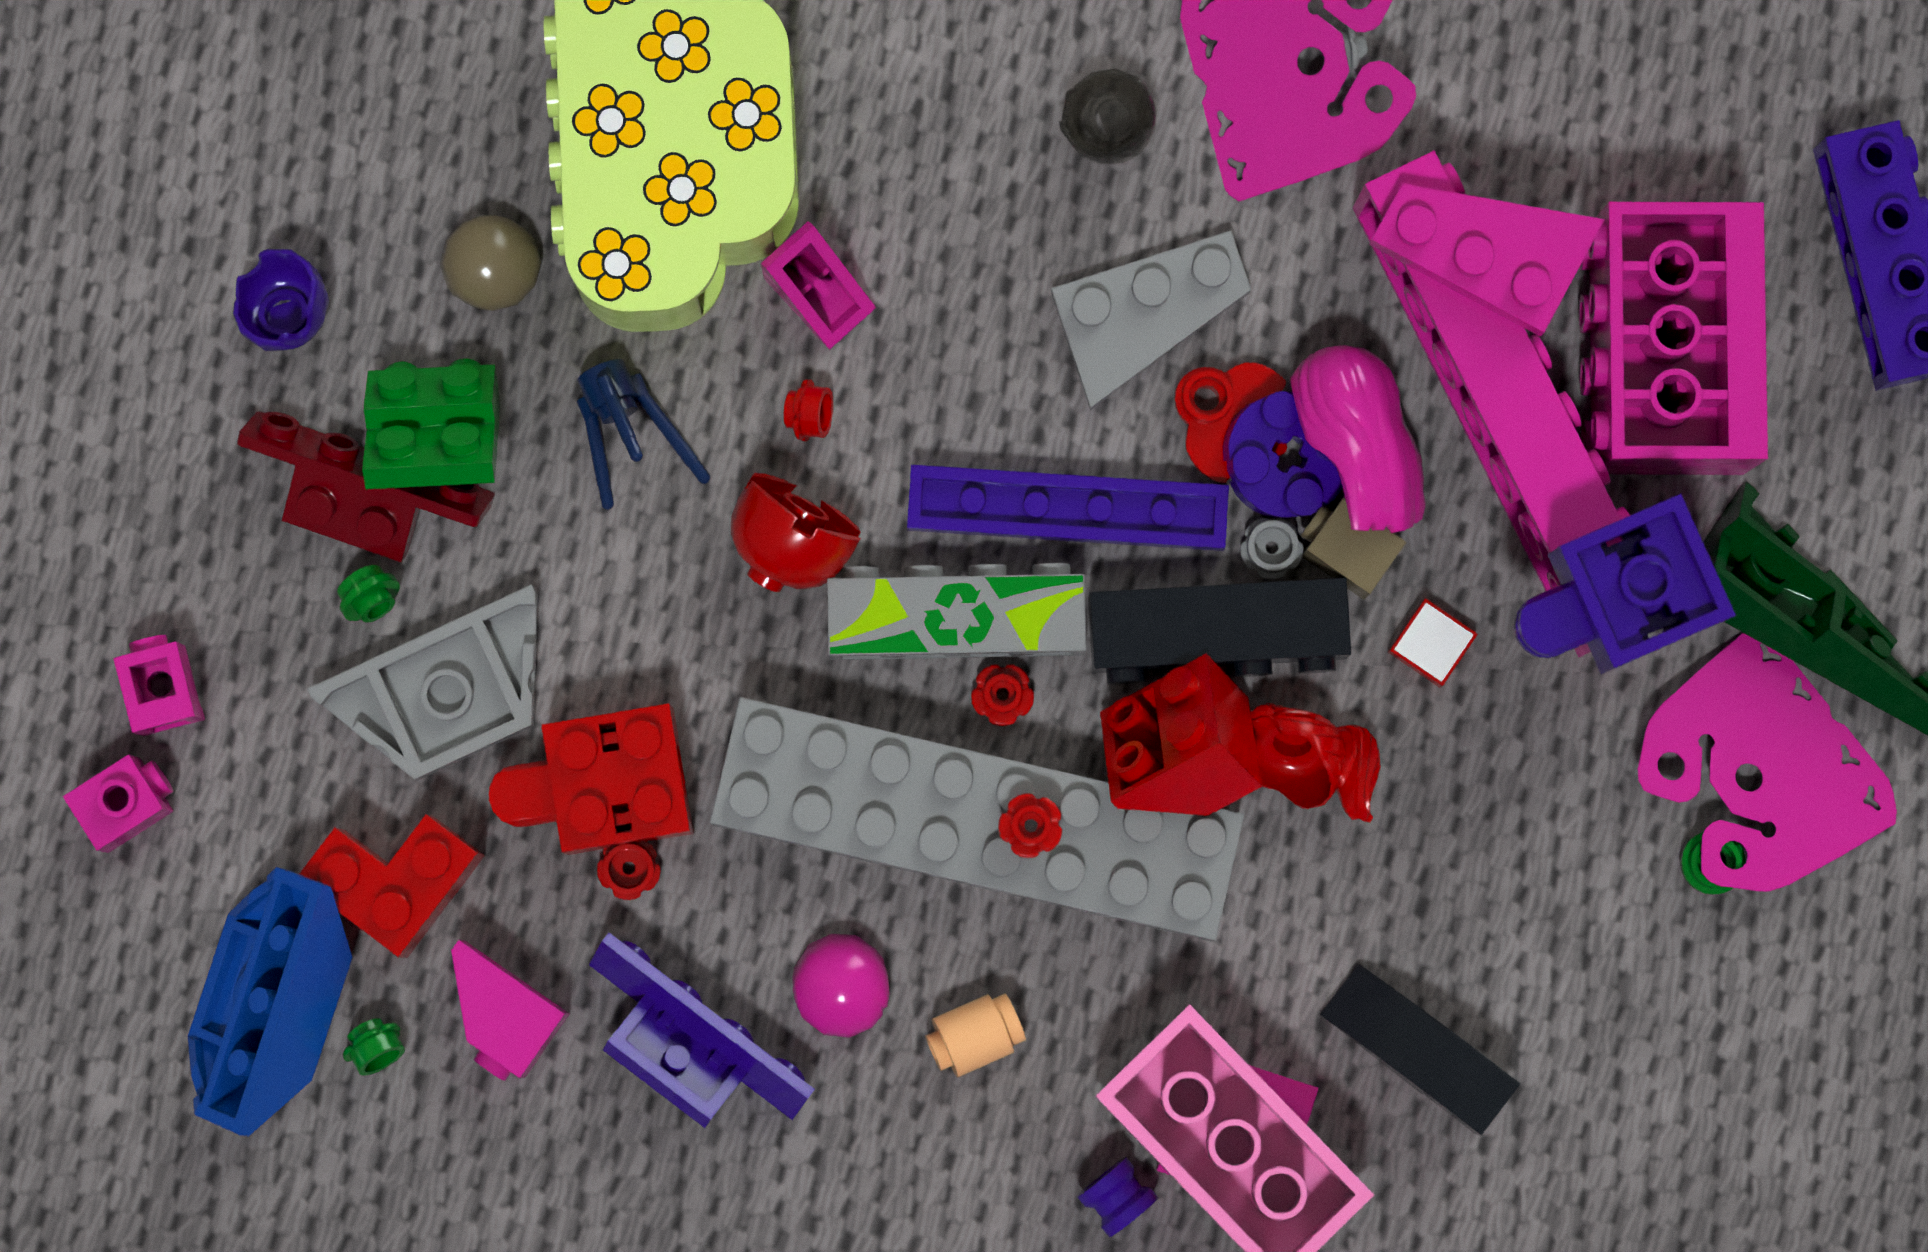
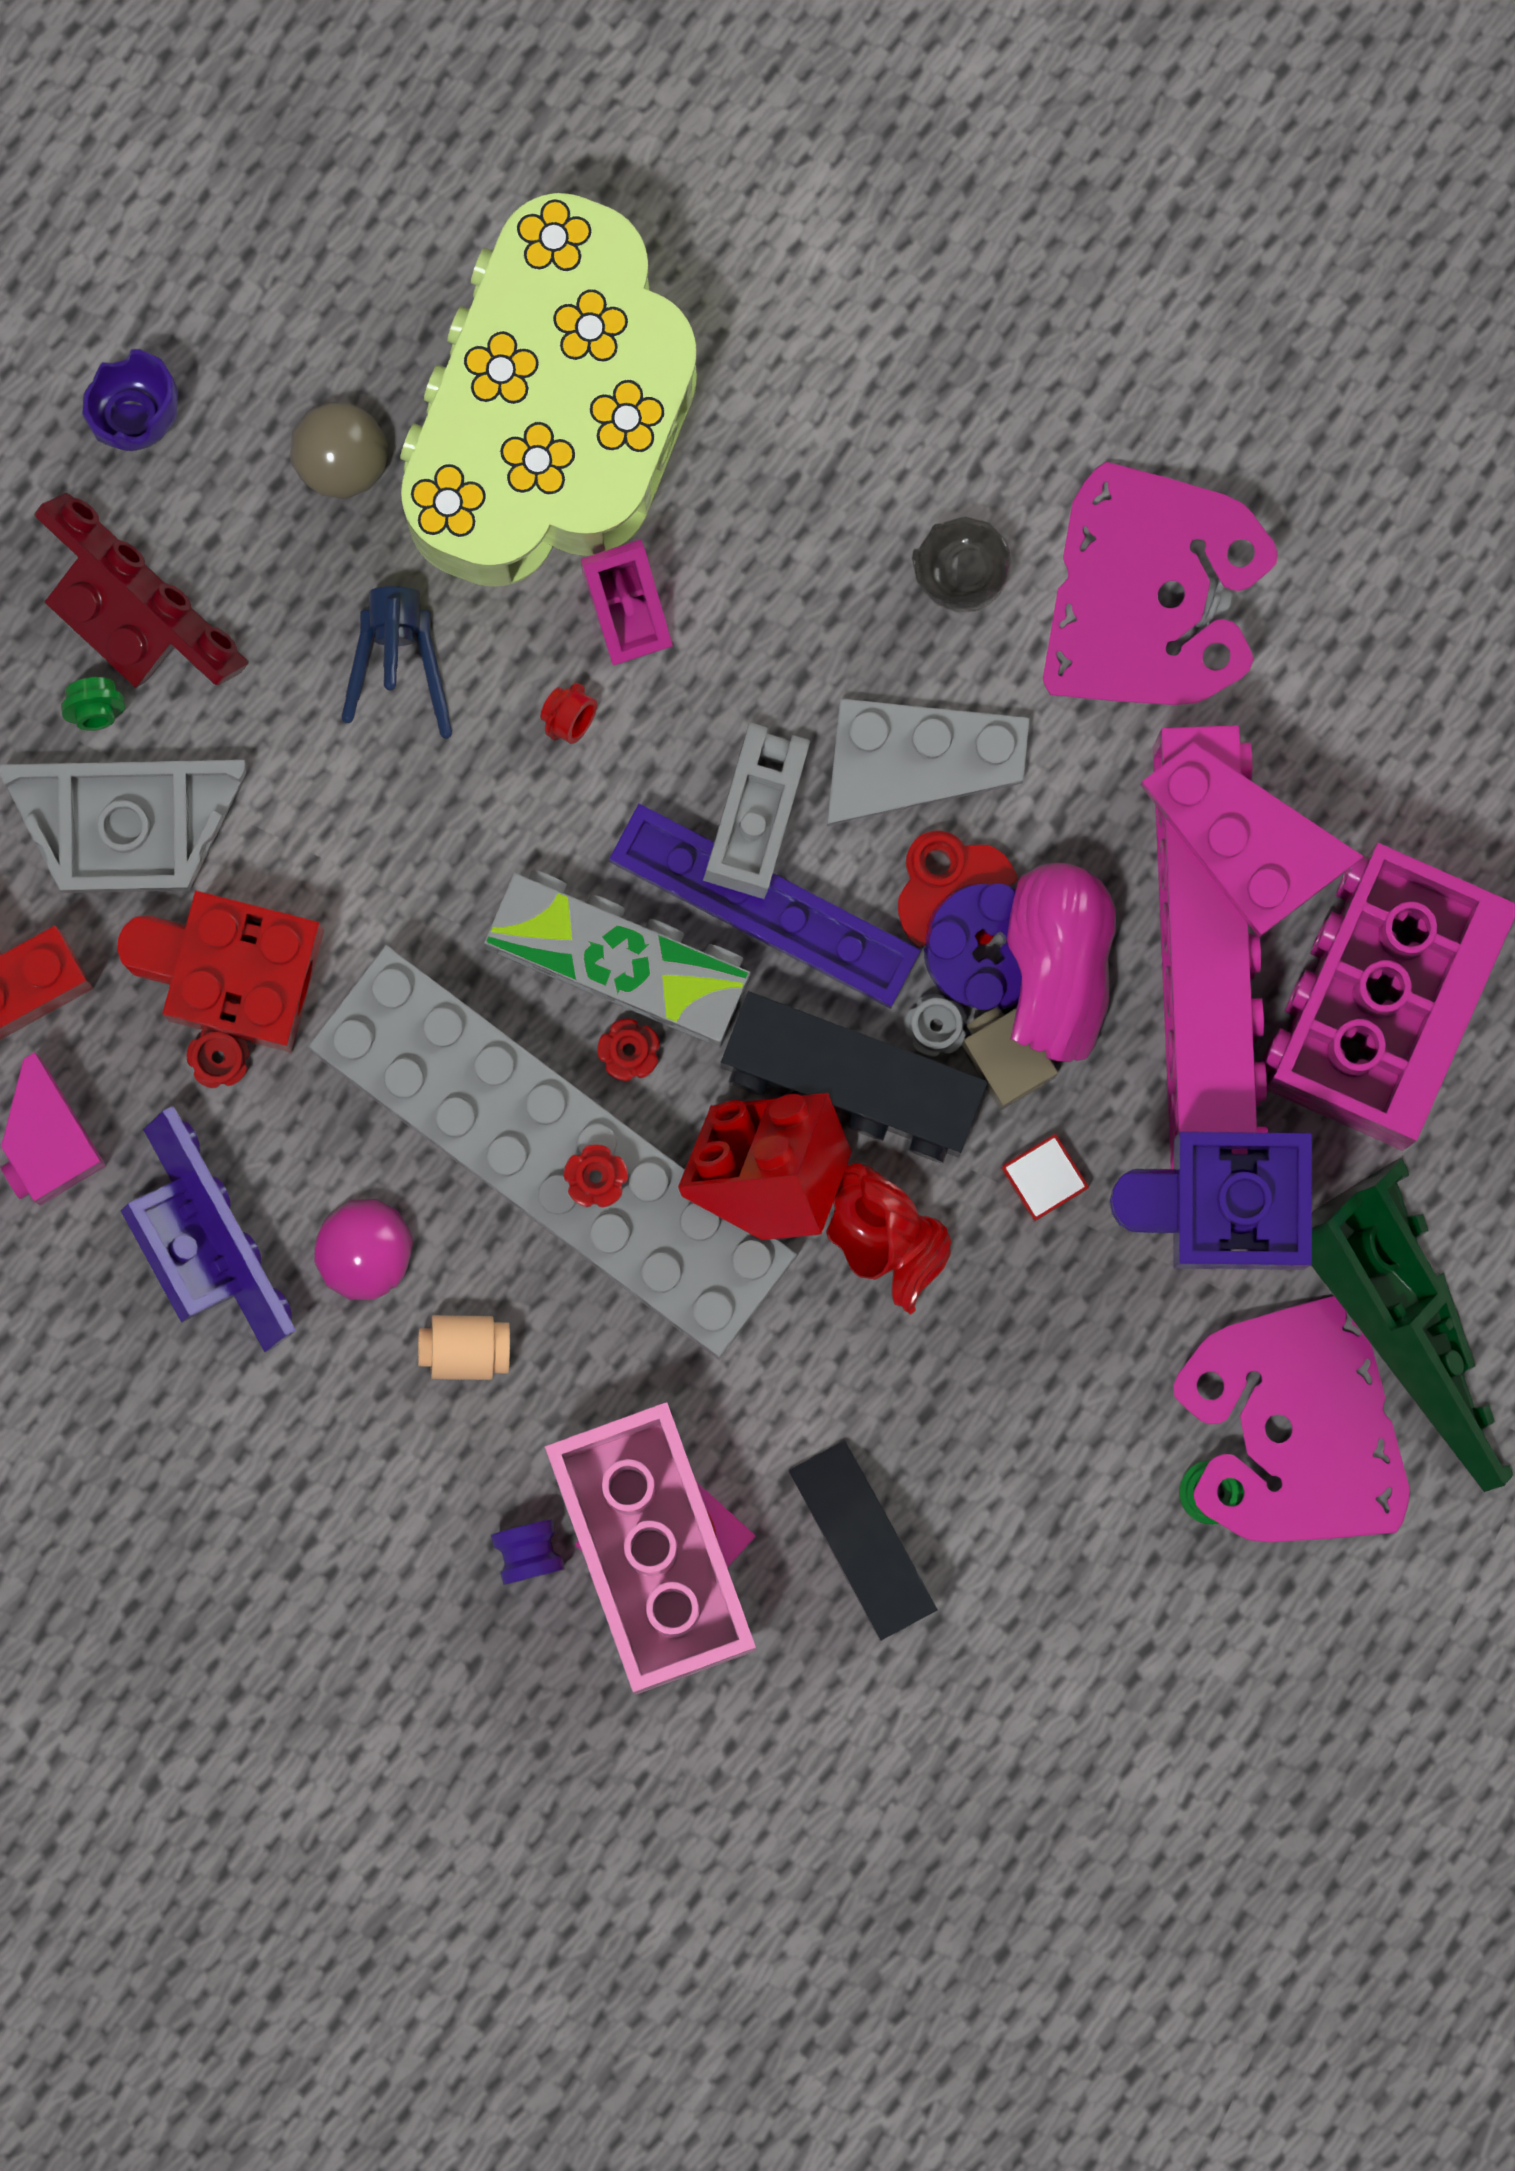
camera: 25 degrees right, 0 degrees up
(431, 425) = (217, 574): green plate -> none
(788, 536) = (497, 819): red cylinder -> none
(1023, 425) = (756, 812): none -> light grey plate

